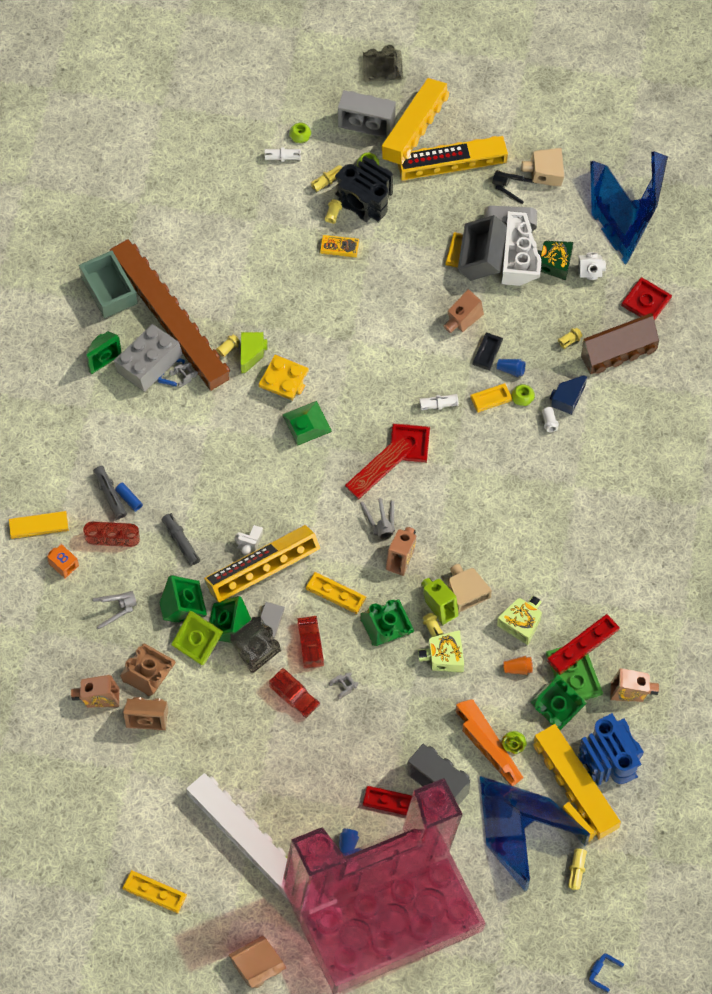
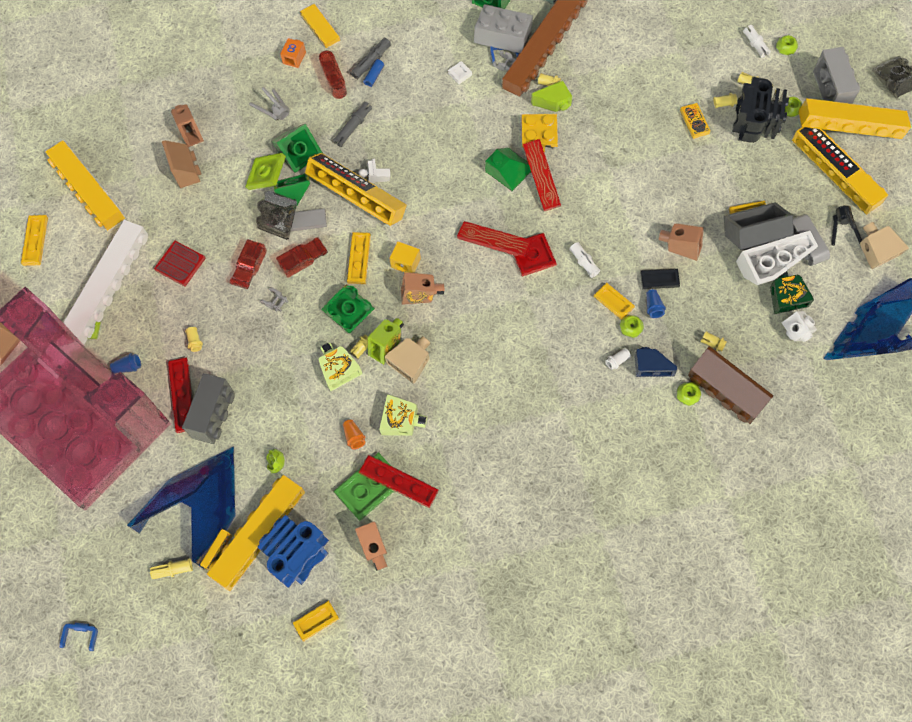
camera: 70 degrees right, 5 degrees up
(116, 818) = (85, 185): none -> yellow brick
(147, 669) = (226, 150): medium nougat slope -> none
(172, 419) = (460, 72): none -> white tile
(257, 758) = (179, 263): none -> red tile
(333, 396) = (541, 175): none -> red tile
(350, 772) = (193, 339): none -> light yellow pin
(361, 550) = (405, 258): none -> yellow piece
(384, 527) = (437, 267): light grey plant -> none
(485, 739) = (268, 436): orange wedge -> none
(558, 702) = (328, 482): green slope -> none
(608, 385) = (684, 397): none -> lime plate
(646, 299) = (796, 393): red tile -> none
(678, 763) = (315, 620): none -> yellow tile

